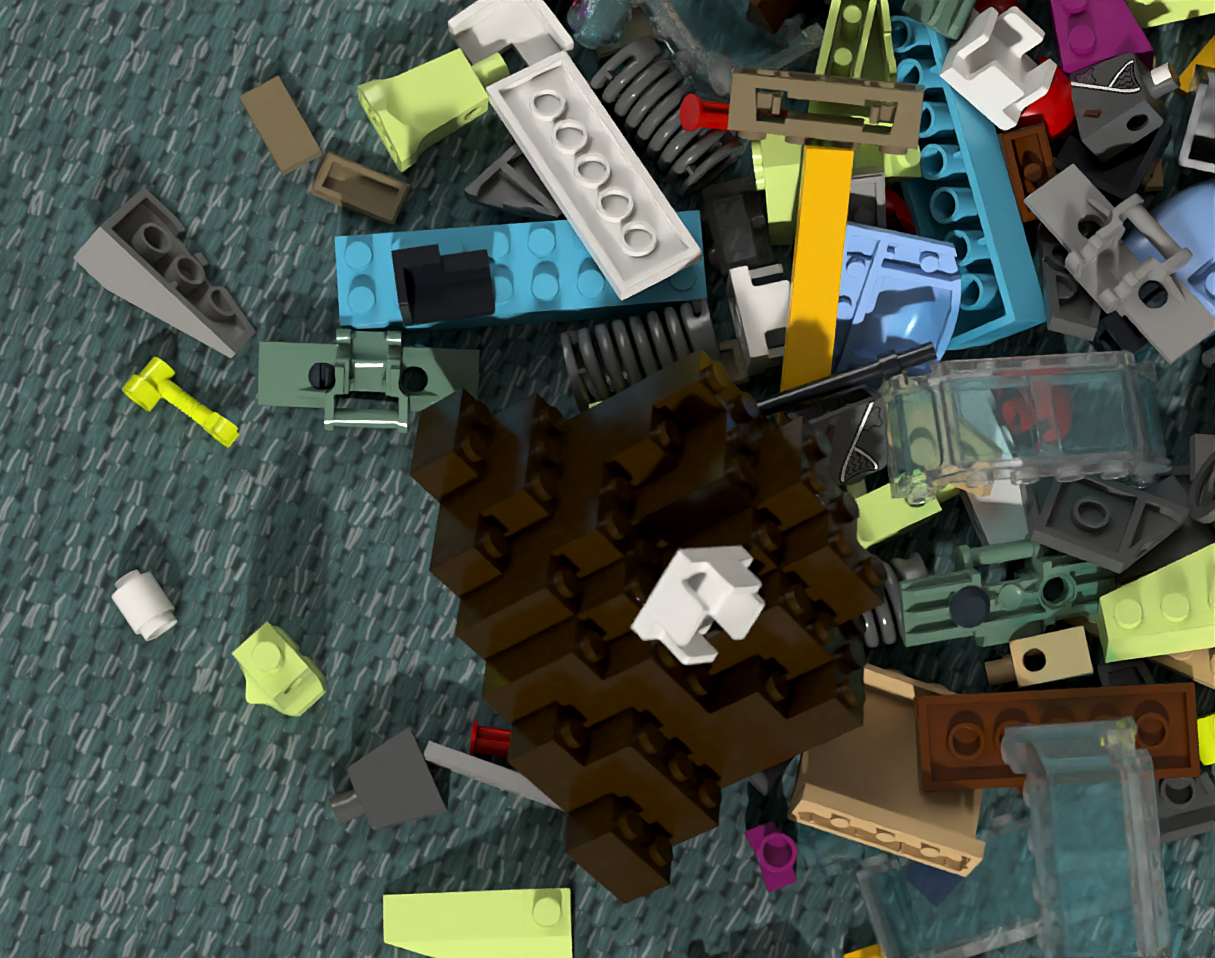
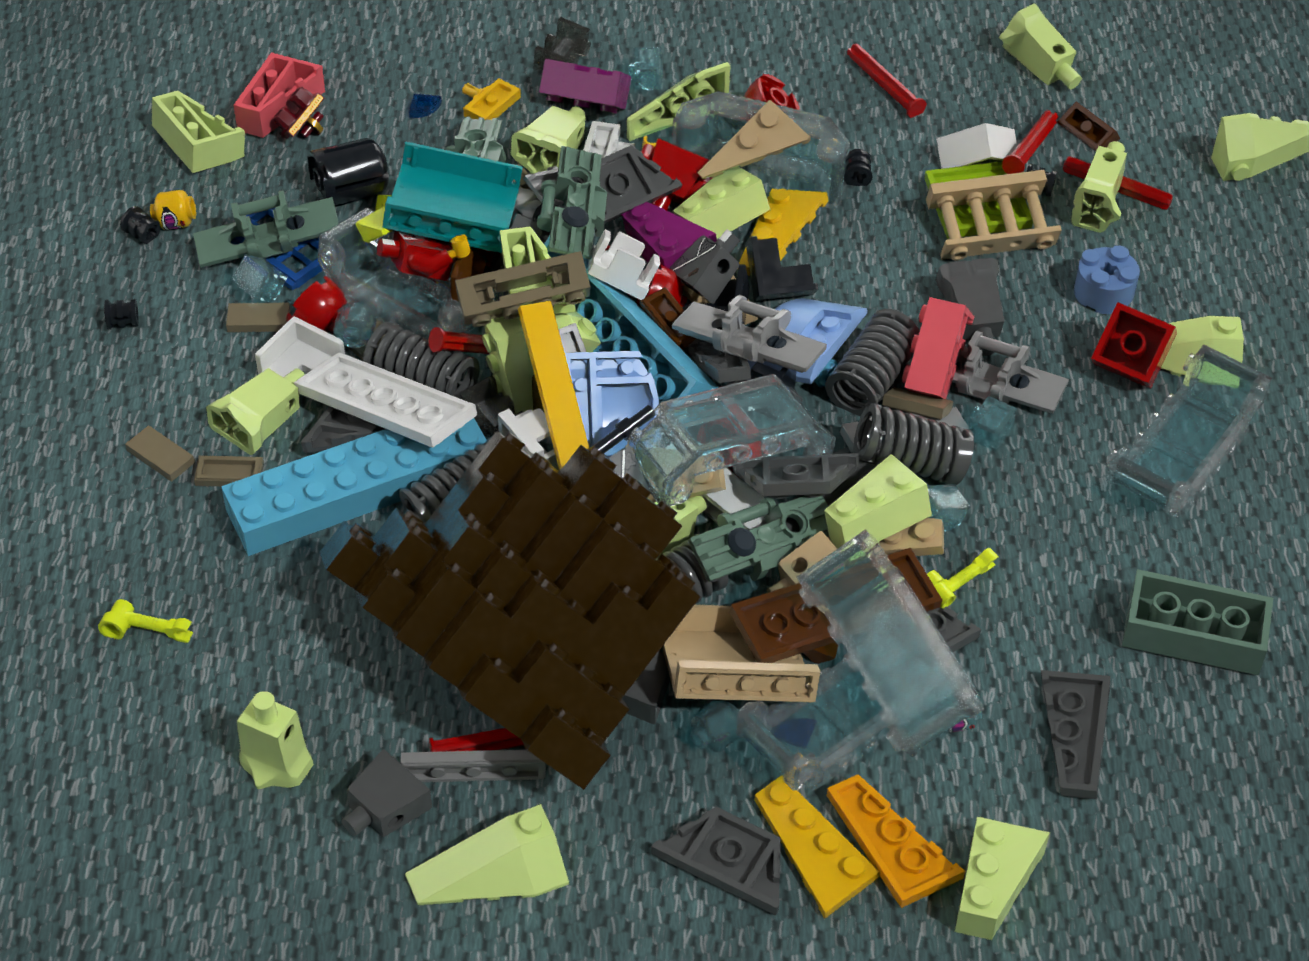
camera: 20 degrees left, 30 degrees down
(144, 604) = (159, 747): white brick -> none
(148, 265) = (85, 546): light grey wedge -> none
(361, 361) = (237, 573): sand green piece -> none
(442, 286) = (303, 478): black panel -> none
(696, 591) = (556, 538): white panel -> none
(774, 854) = (670, 739): magenta bar -> none

